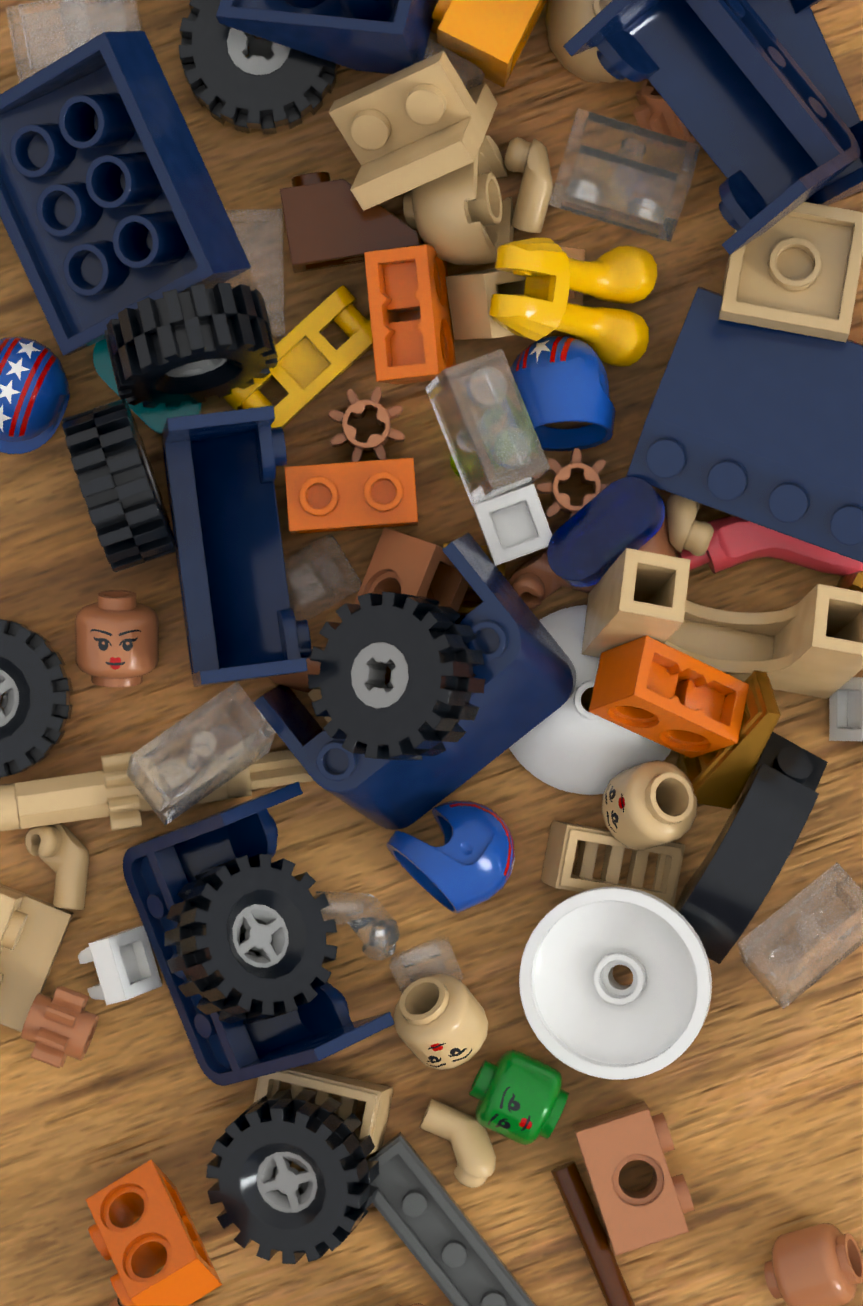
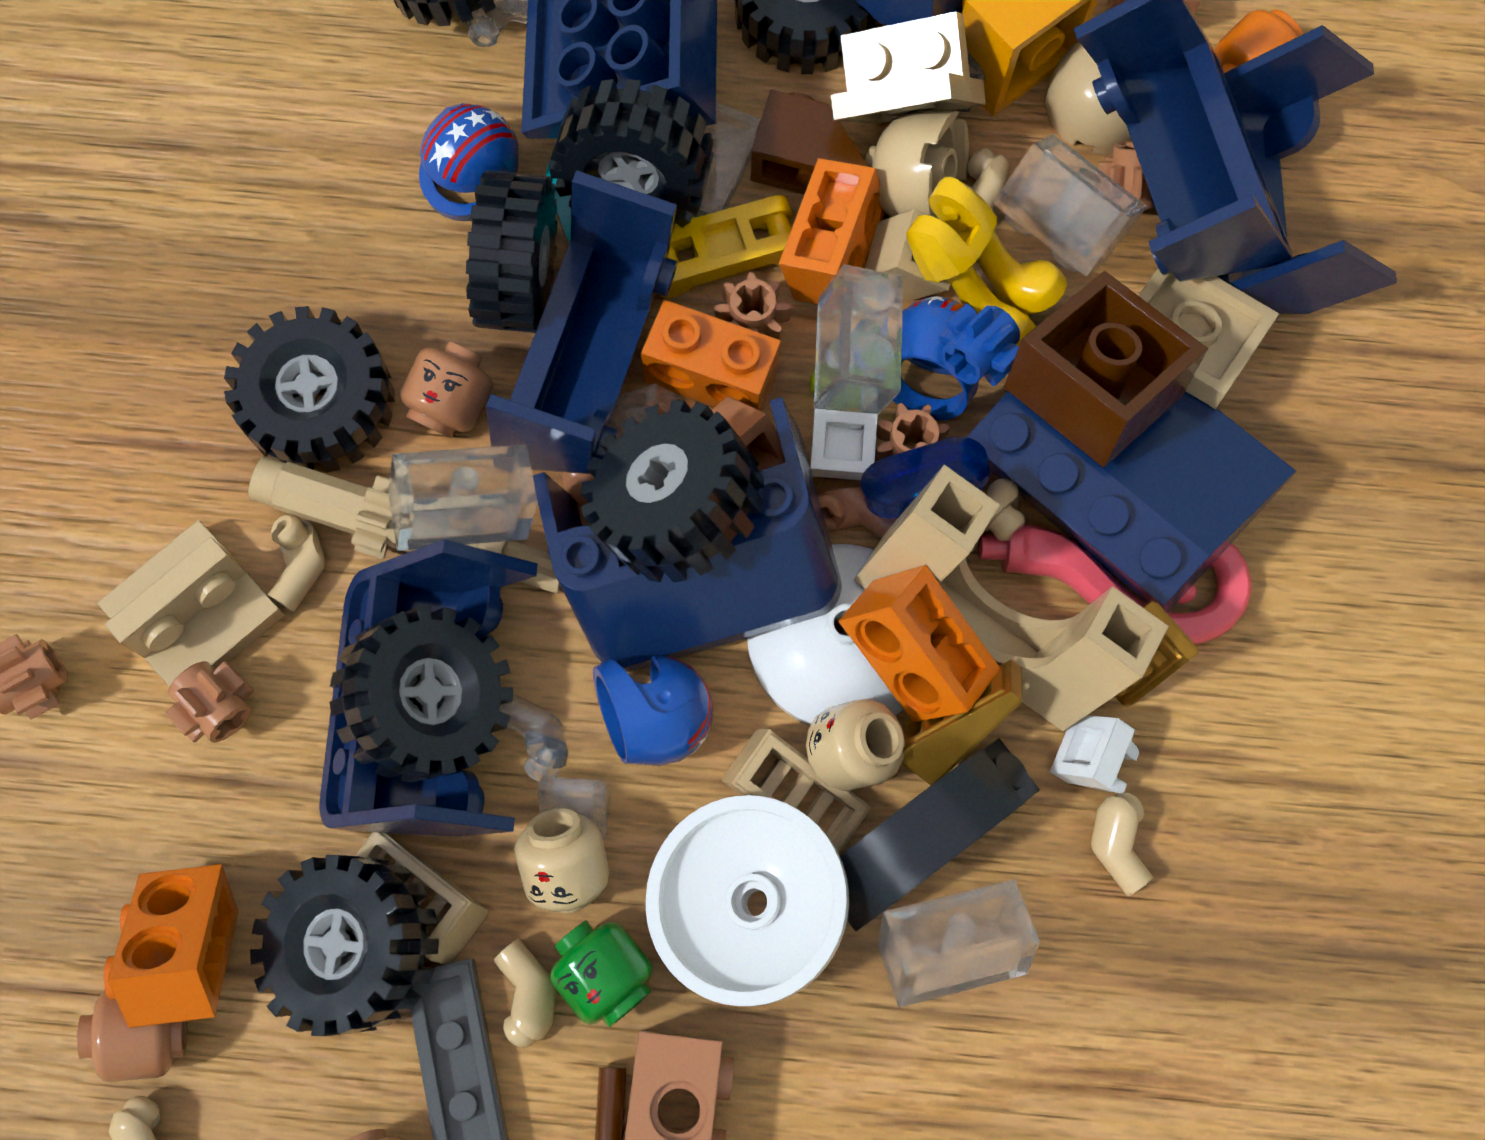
camera: 25 degrees right, 15 degrees down
(122, 965) = (298, 673): white tile -> none
(606, 396) = (980, 344): none -> blue gear
(728, 371) = (1104, 367): none -> reddish brown brick

